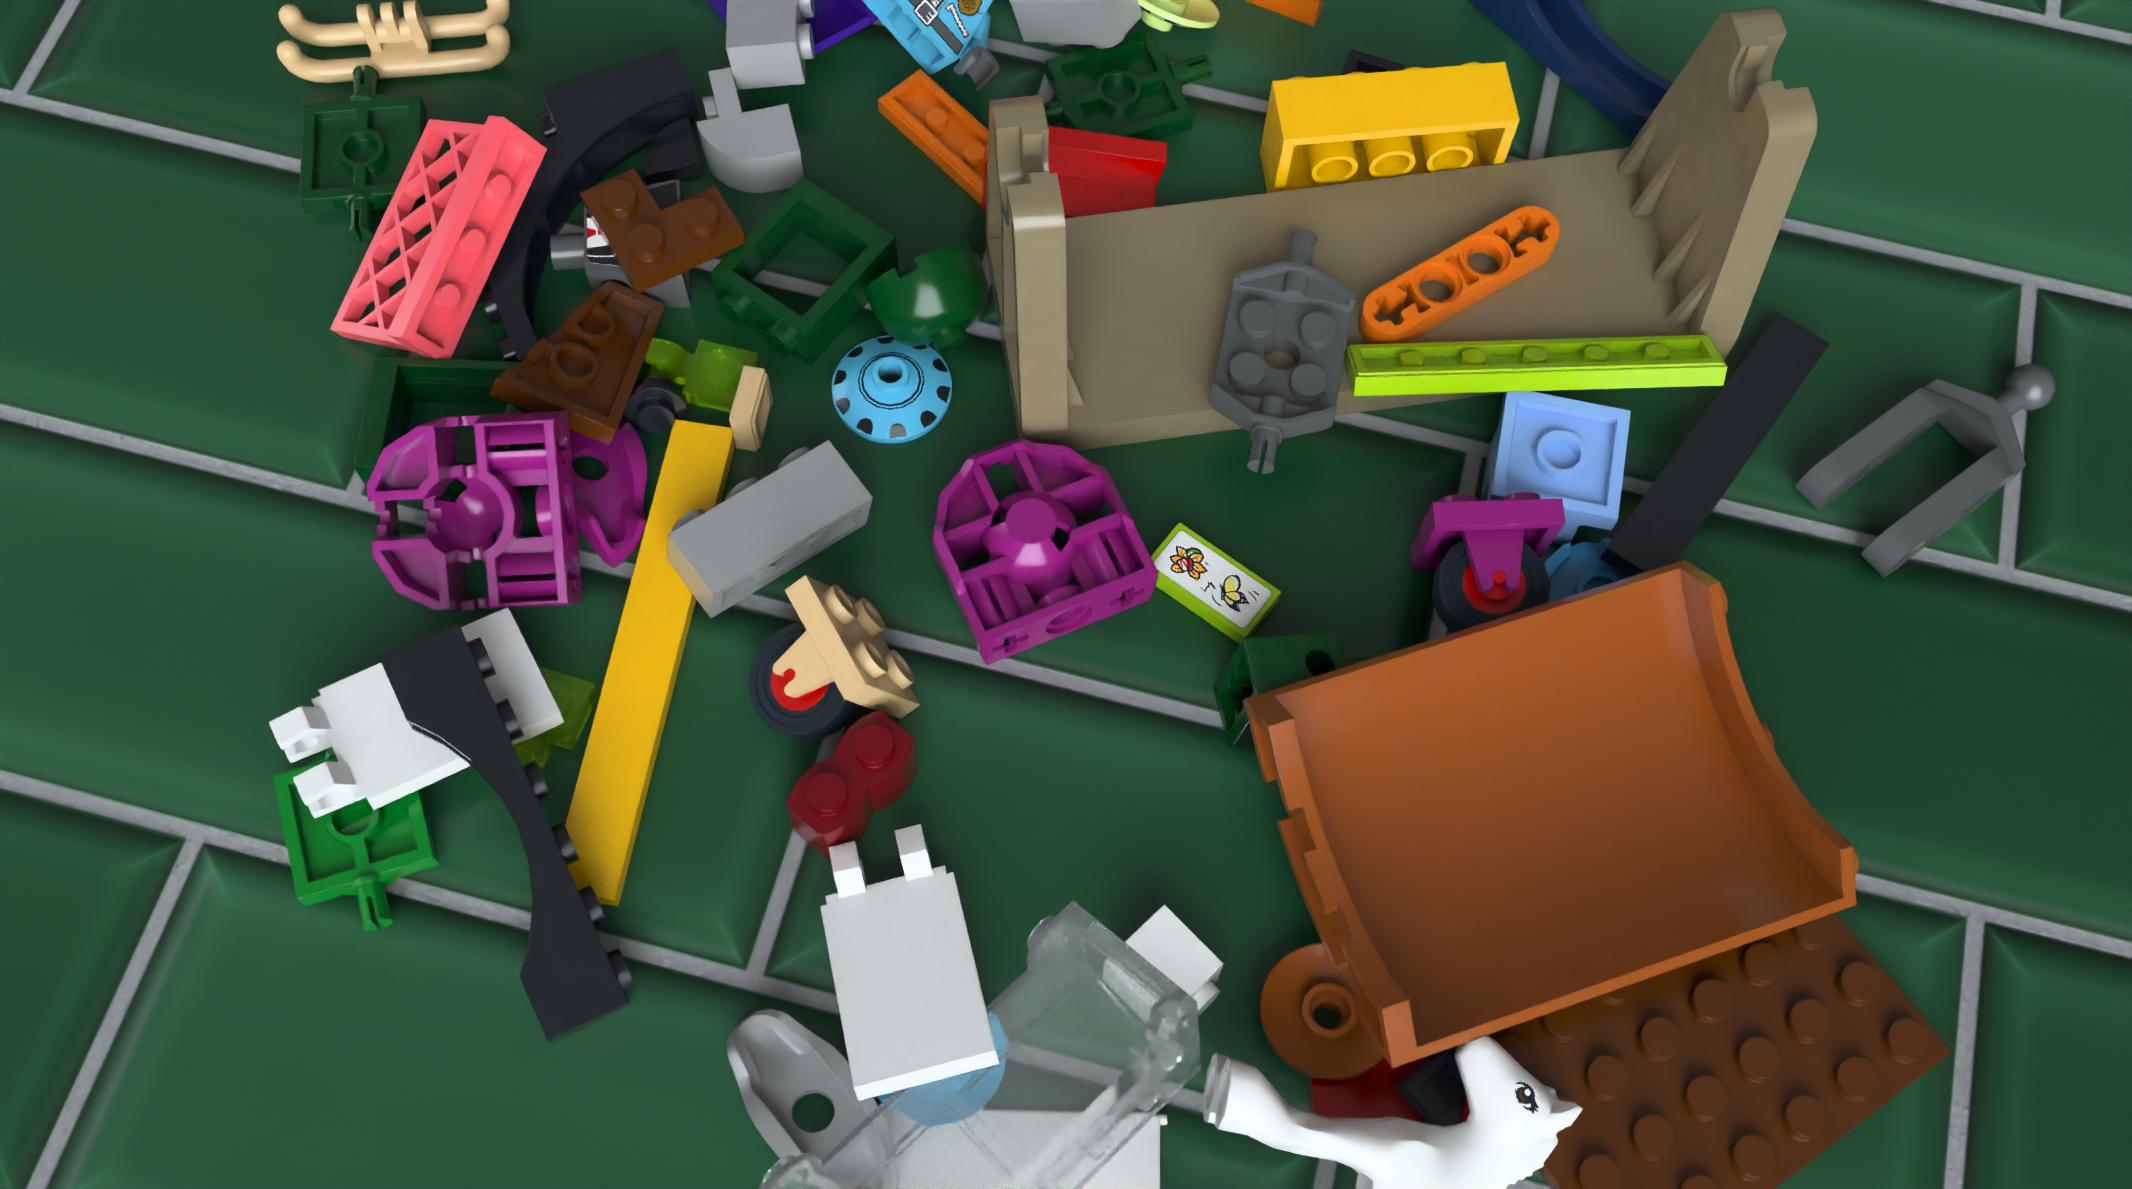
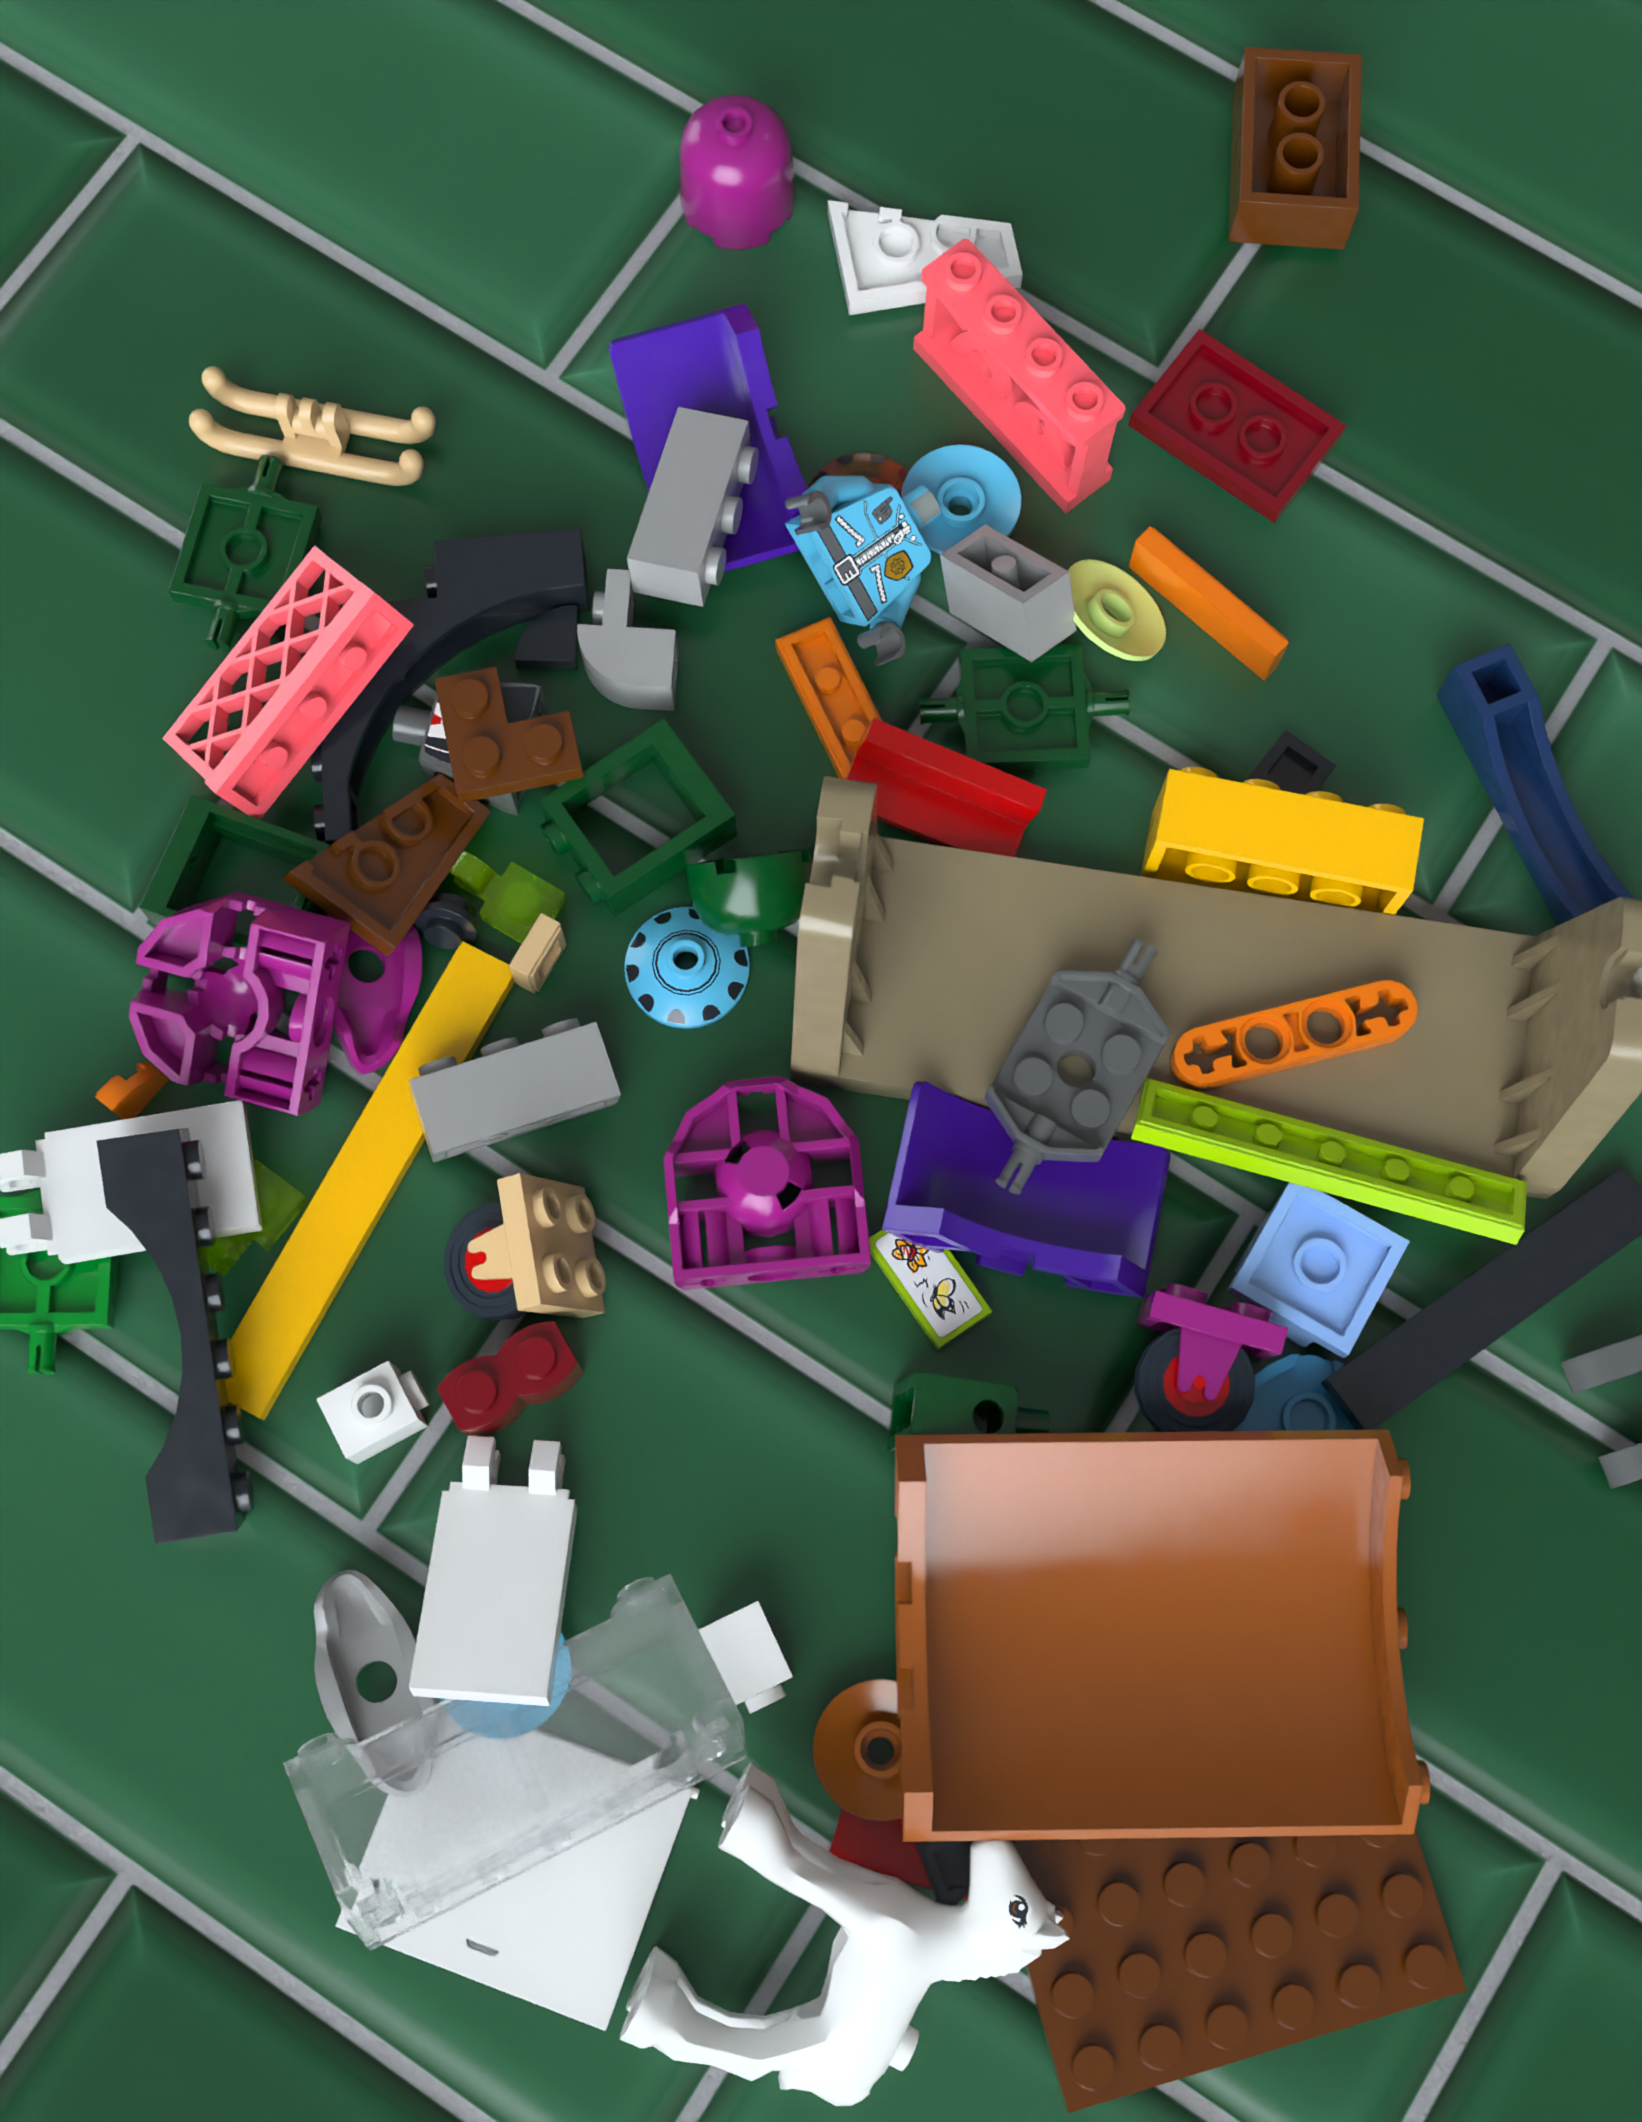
camera: 20 degrees right, 10 degrees up
(398, 632) = (130, 1096): none -> orange tile
(728, 855) = (374, 1411): none -> white brick
(1324, 491) = (1070, 1220): none -> dark purple panel

